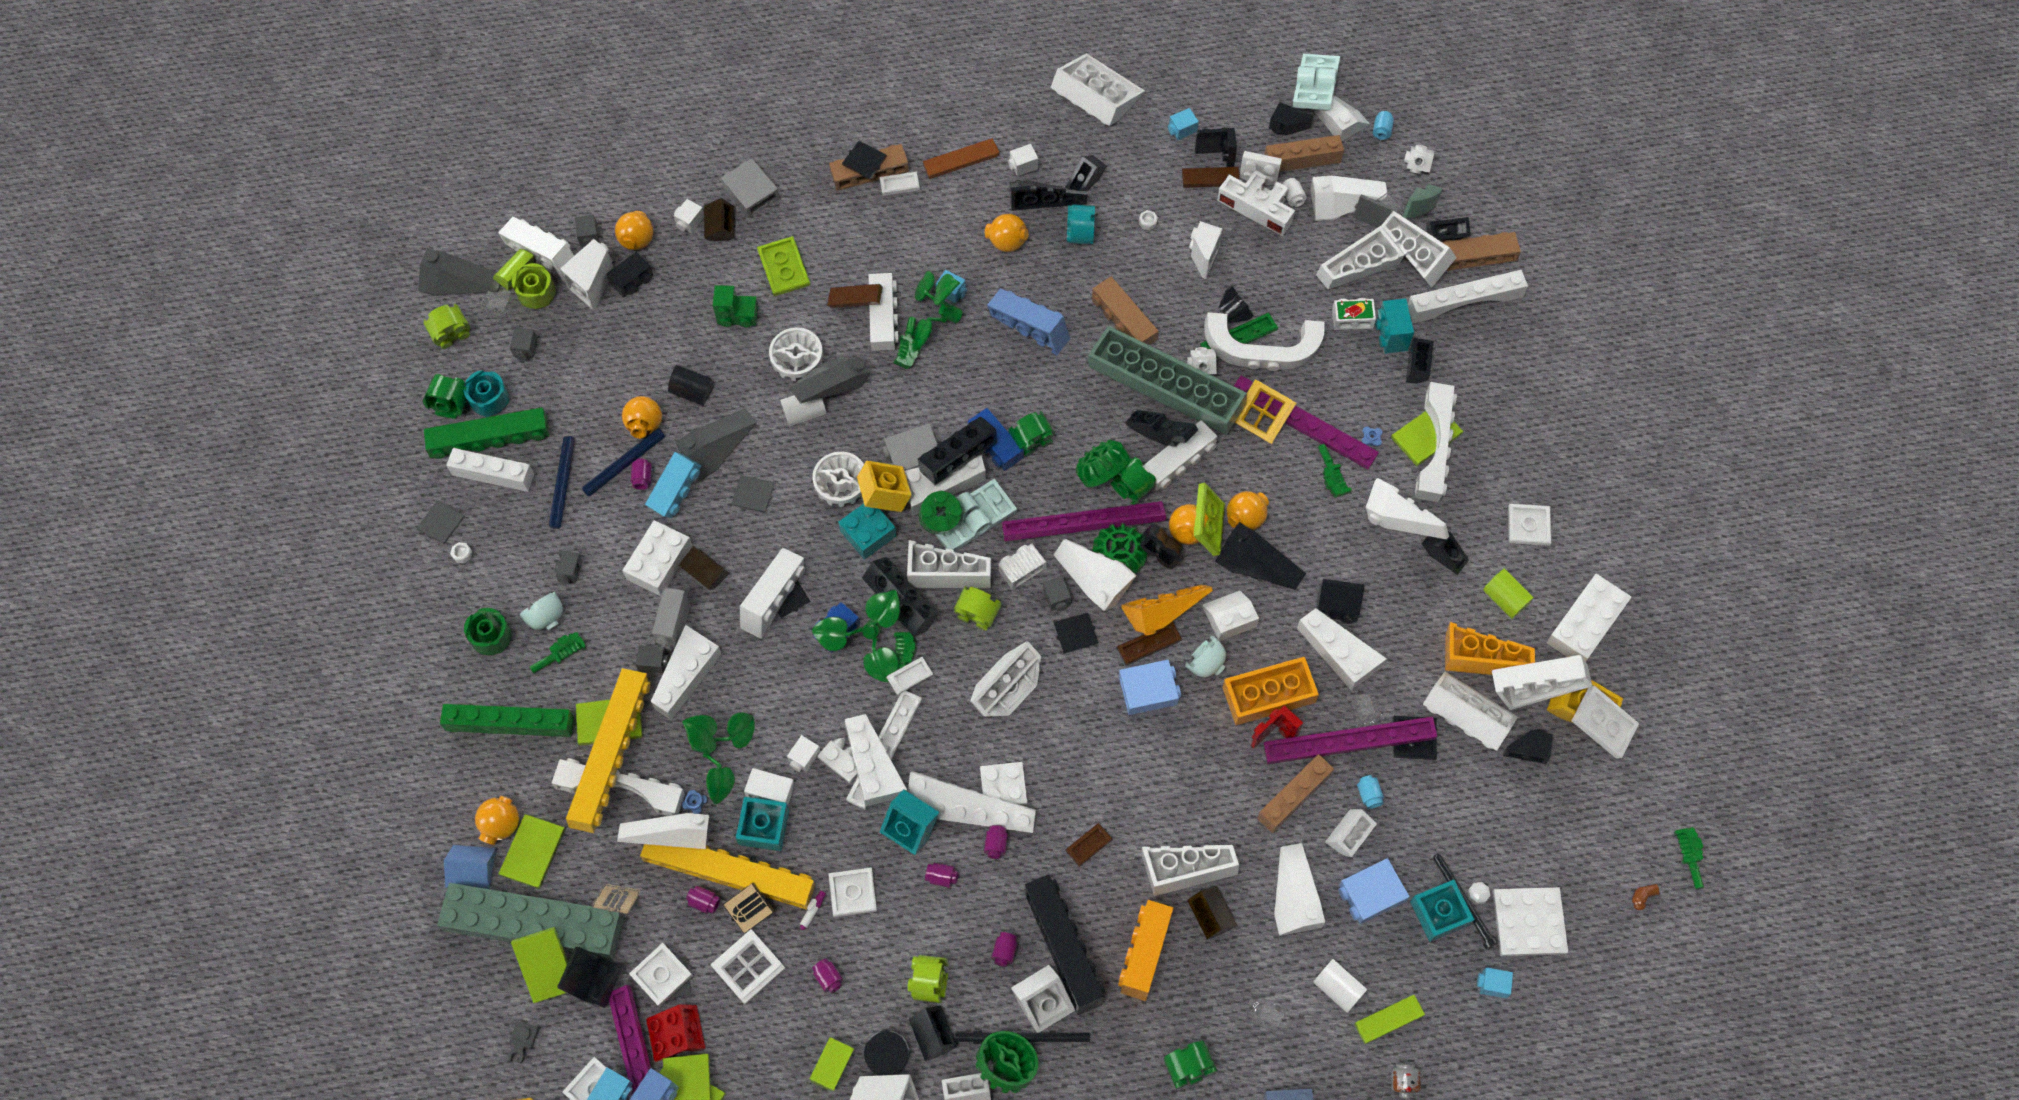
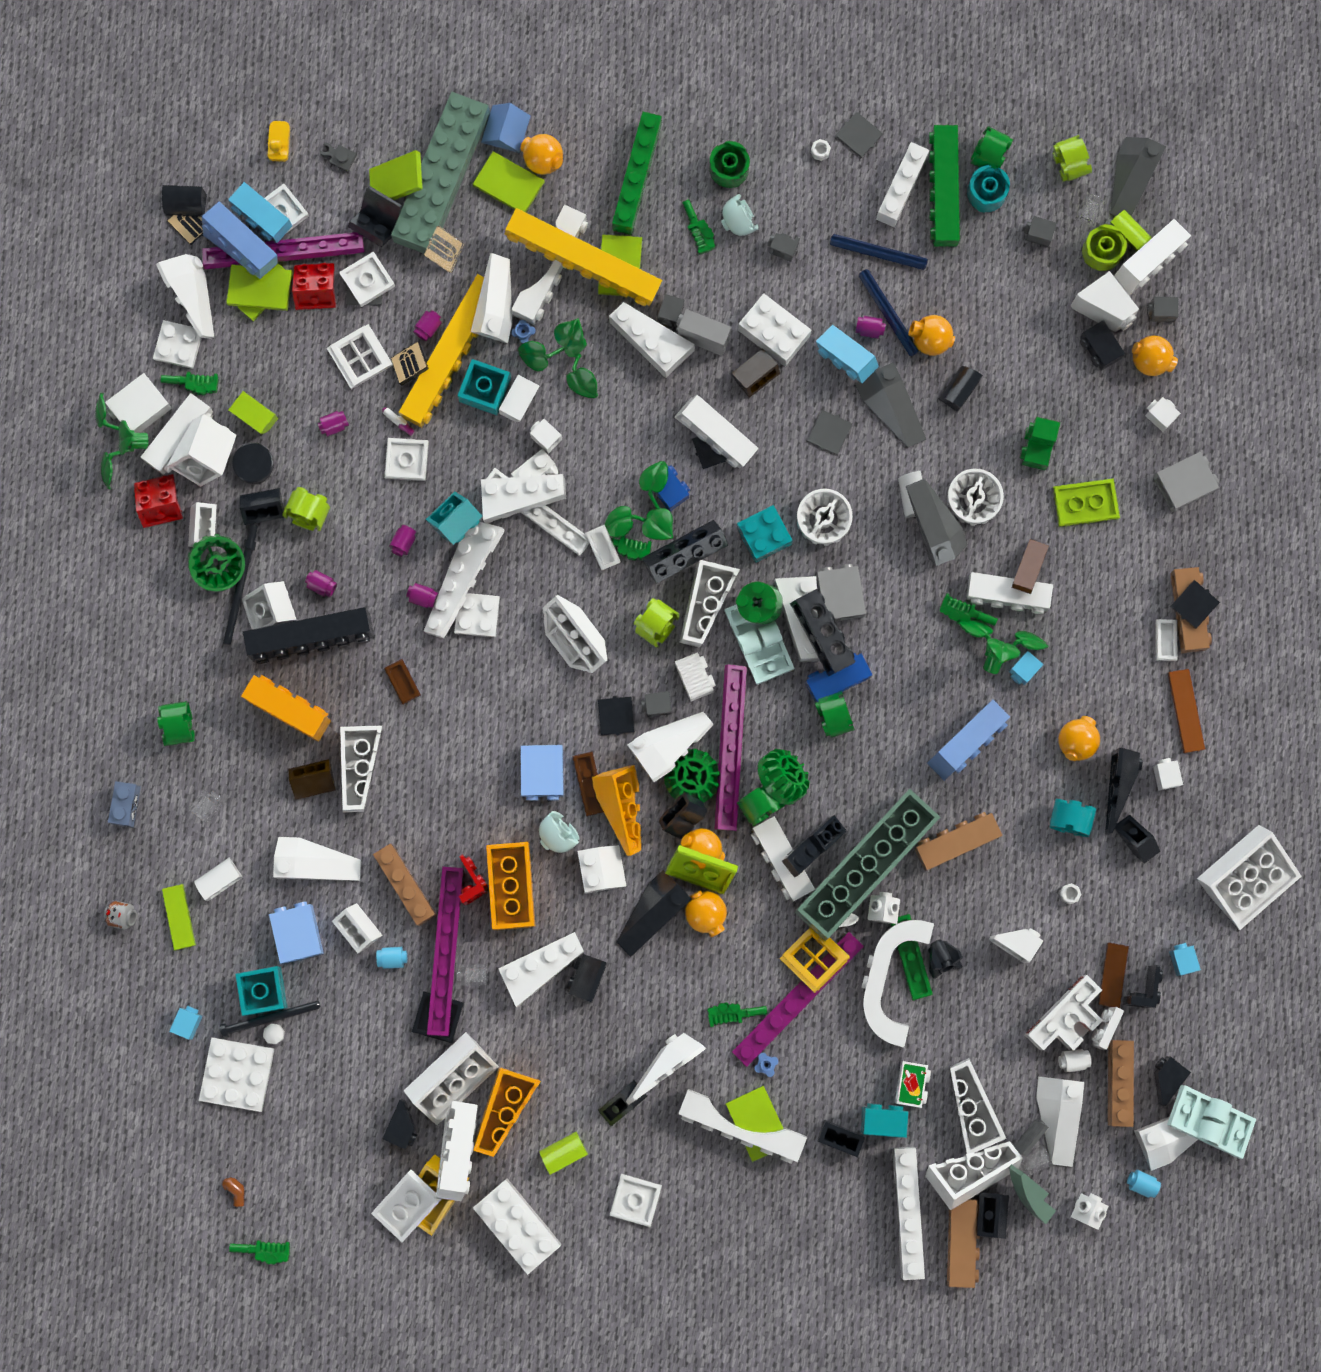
camera: 100 degrees right, 15 degrees up
(719, 221) = (1151, 444): dark brown brick -> none
(884, 486) = (799, 553): yellow brick -> none

